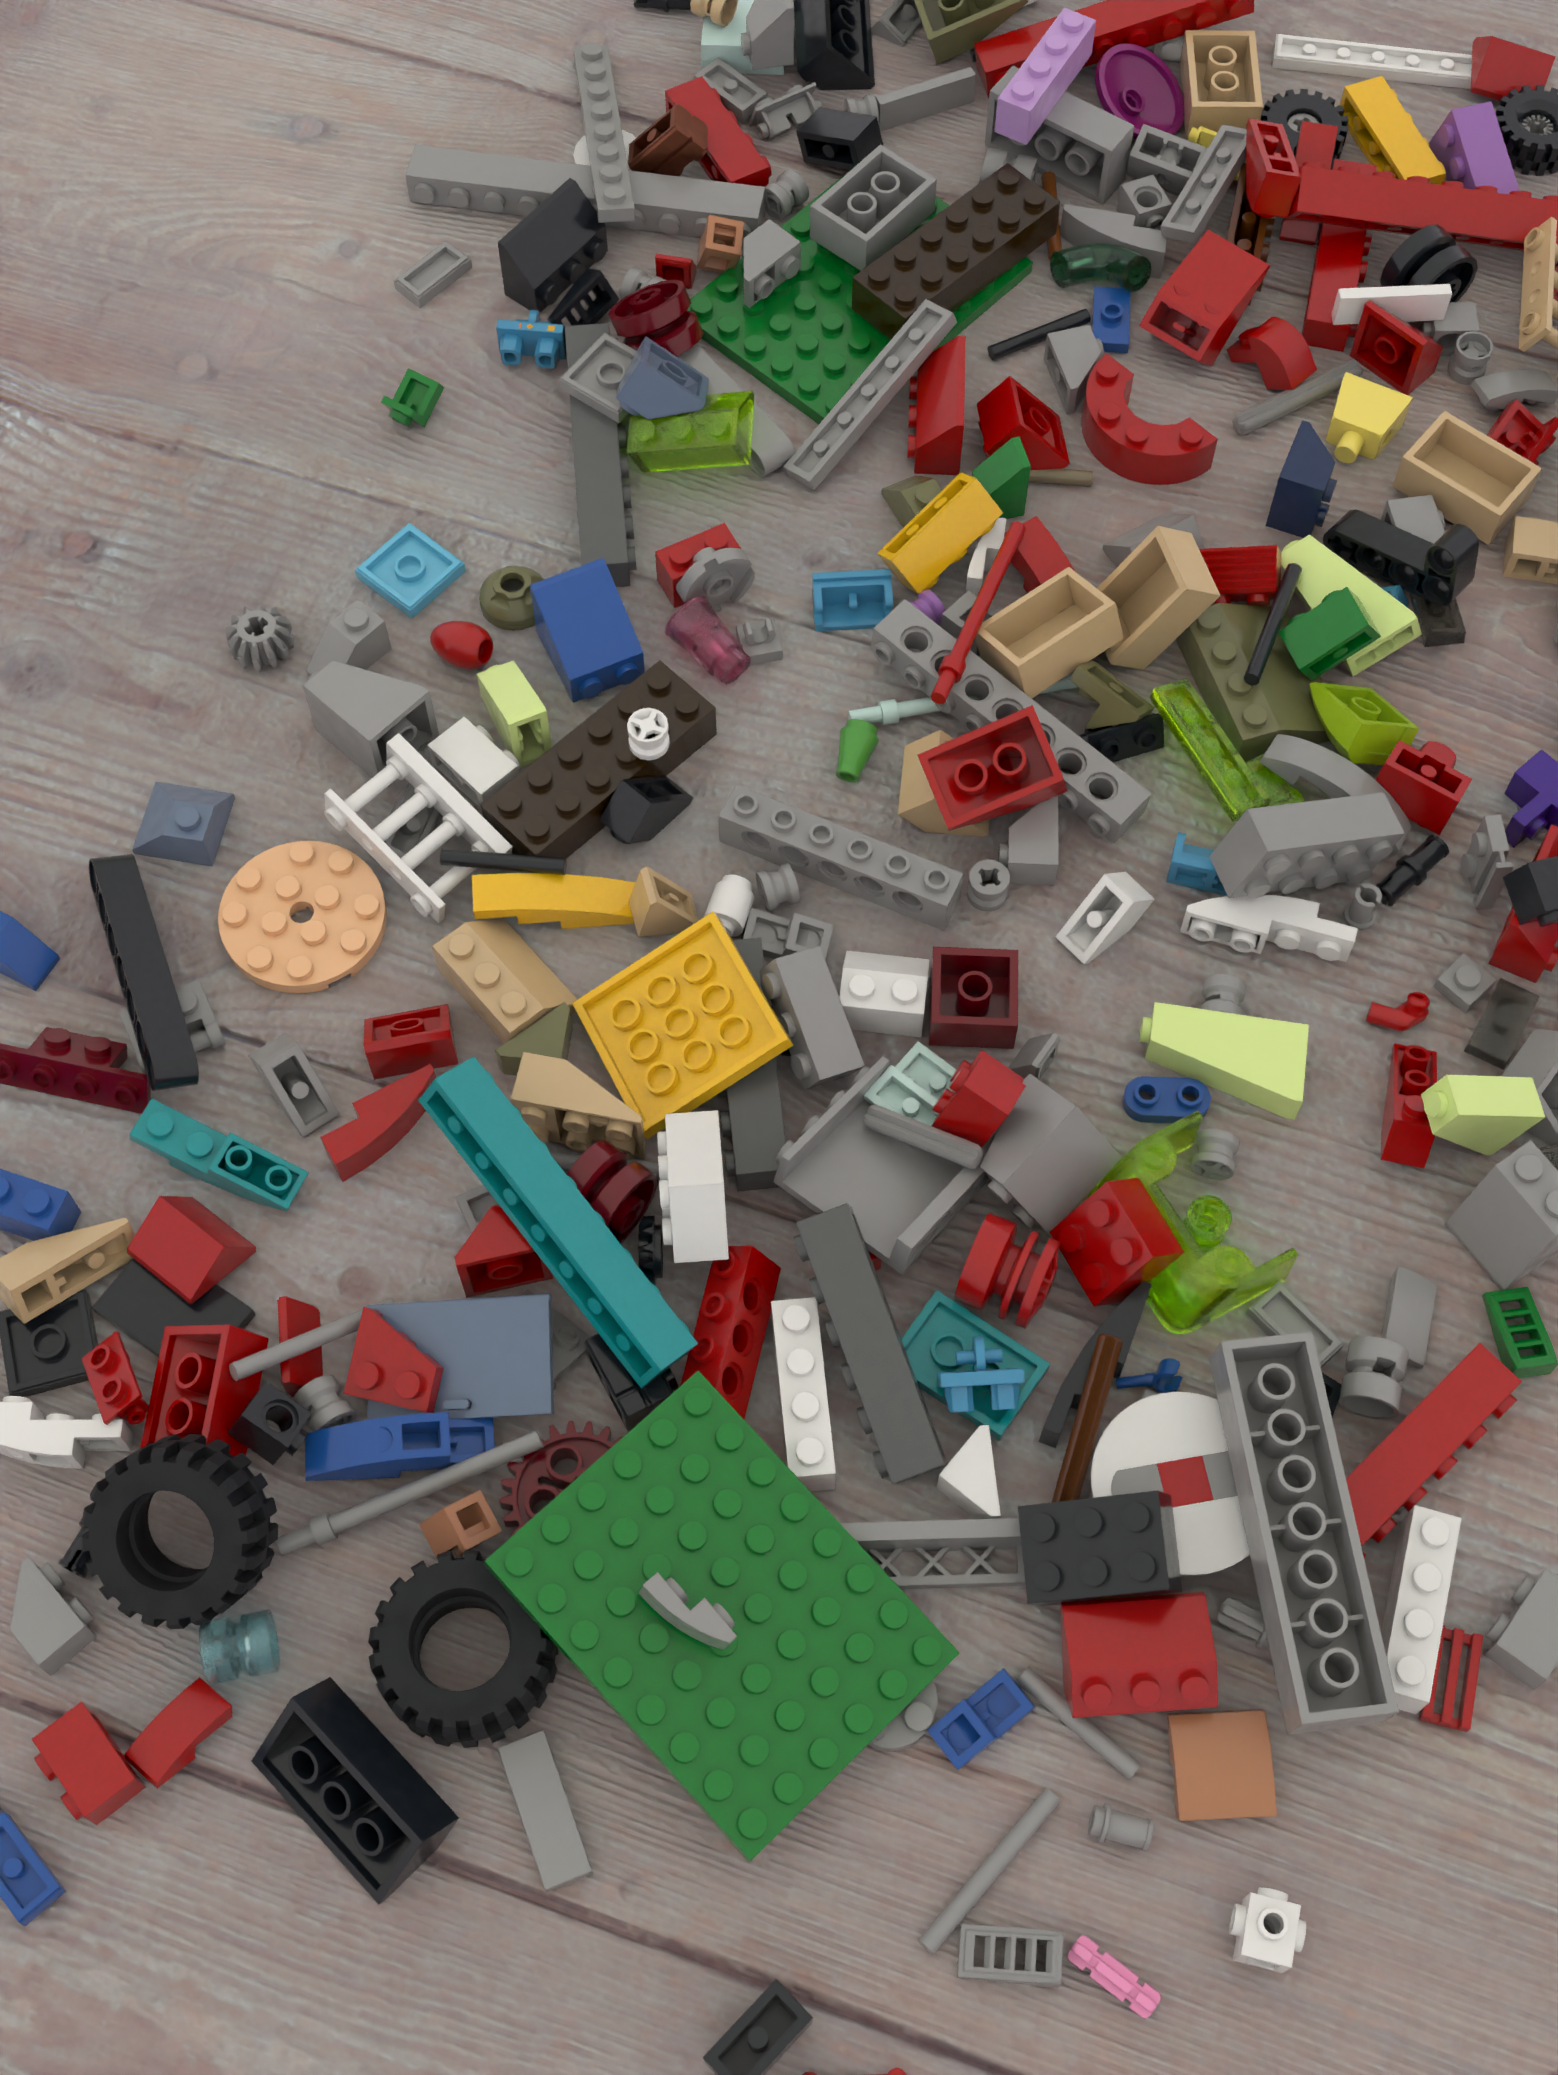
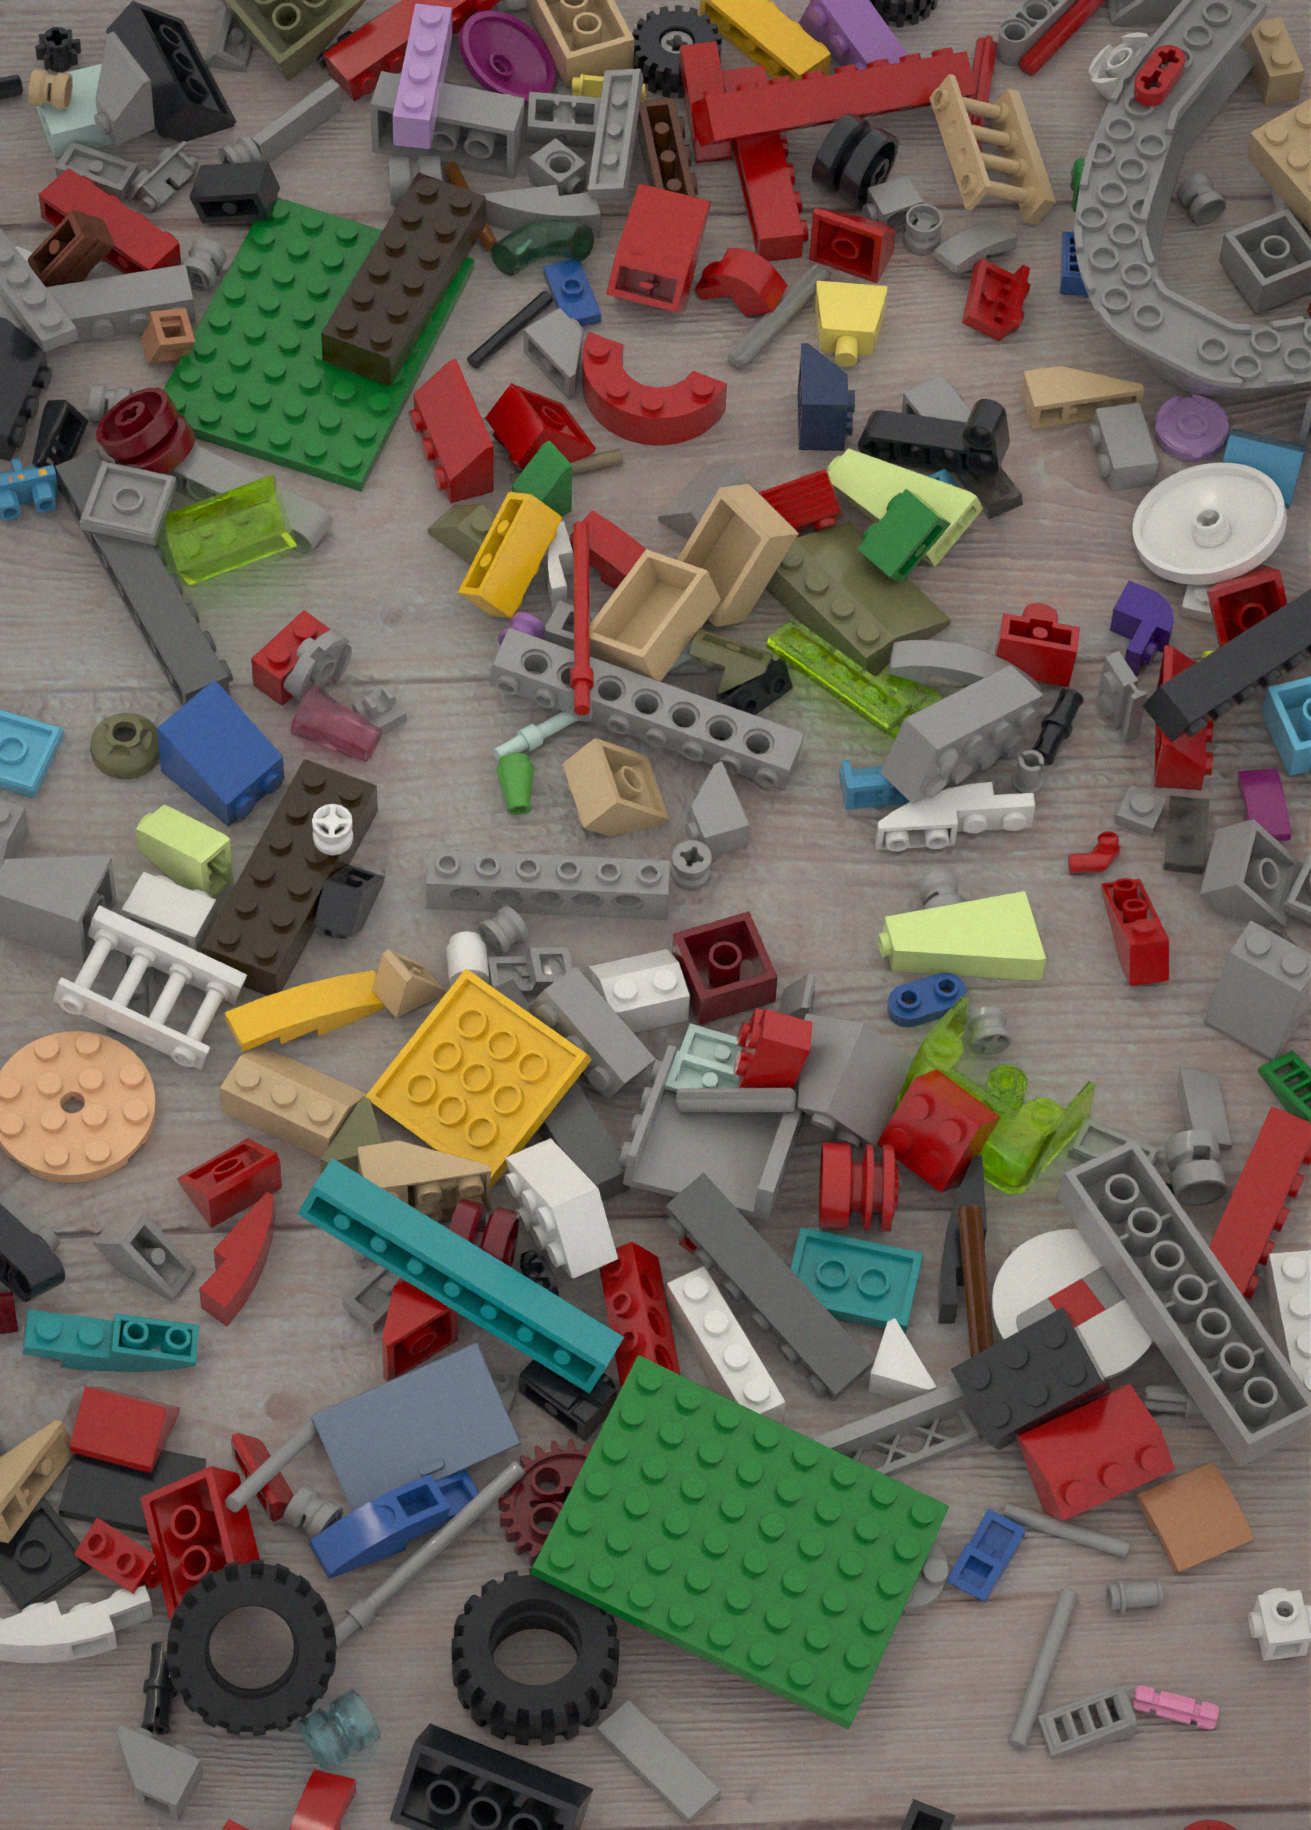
camera: 25 degrees left, 5 degrees down
(255, 1433) = (281, 1537): black brick -> none
(391, 1367) = (359, 1458): red wing -> none
(461, 1525) = (484, 1560): nougat brick -> none
(462, 644) = (102, 805): red animal -> none
(503, 861) = (247, 990): black bar -> none
(660, 384) = (185, 496): sand blue slope -> none
(676, 268) = (130, 375): red slope -> none
(703, 1622) = (740, 1548): light grey slope -> none
(769, 260) = (222, 339): light grey slope -> none
(851, 599) = (450, 644): dark azure hinge -> none
(870, 394) = (383, 442): light grey plate -> none
(872, 208) = (305, 256): light grey brick -> none
(993, 770) = (661, 758): red slope -> none
(1002, 1382) = (891, 1279): dark azure hips -> none
(1104, 916) = (806, 858): white slope -> none
(1162, 1379) = (1017, 1235): blue hand -> none
(1270, 169) = (672, 104): red slope -> none
(1272, 624) = (850, 543): black bar -> none
(1360, 722) = (961, 607): lime slope -> none
(1406, 302) = (844, 198): white tile -> none
(1468, 475) = (968, 345): tan piece -> none
(1482, 1110) = (1200, 912): yellowish green slope -> none

